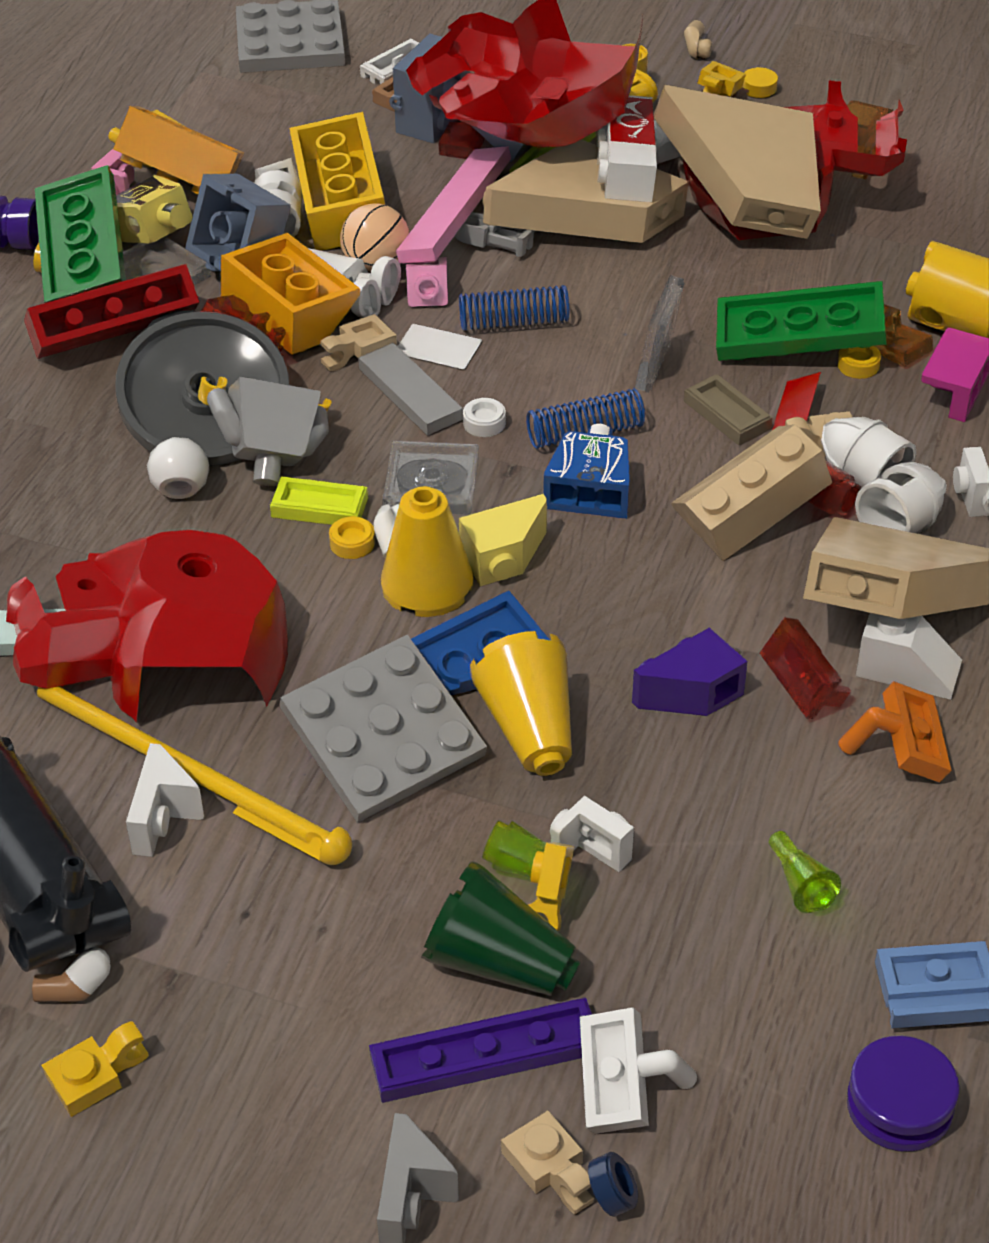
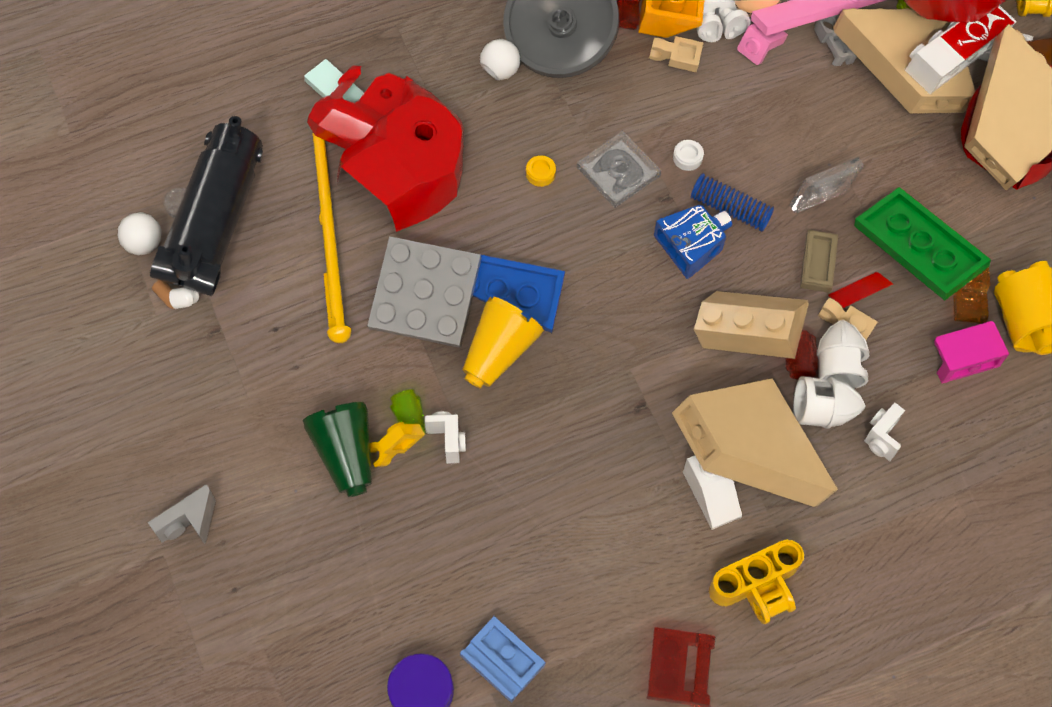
camera: 45 degrees right, 20 degrees up
(89, 1072) = (137, 343): yellow plate -> none
(161, 793) = (299, 234): white slope -> none
(267, 422) = (565, 71): light grey torso -> none
(317, 500) = (550, 135): neon yellow tile -> none
(384, 526) = (559, 179): white arm -> none
(410, 389) = (672, 104): light grey tile -> none
(426, 557) = (547, 219): yellow cone -> none
(439, 346) = (722, 88): white sticker -> none
(478, 1050) = (289, 490): dark purple tile -> none
(503, 538) = (603, 239): light yellow slope -> none
(549, 1156) = (253, 561): tan plate -> none
(562, 312) = (813, 115): blue piece -> none
(613, 1184) = (258, 601): dark blue tile -> none
(617, 1070) = (318, 557): white plate -> none
(691, 677) = (593, 398): dark purple slope -> none
(803, 668) = (648, 449): clear red plate -> none
(809, 881) = (512, 553): clear neon green cone -> none
(859, 362) = (928, 298): yellow tile -> none
(914, 729) = (659, 527): orange plate -> none

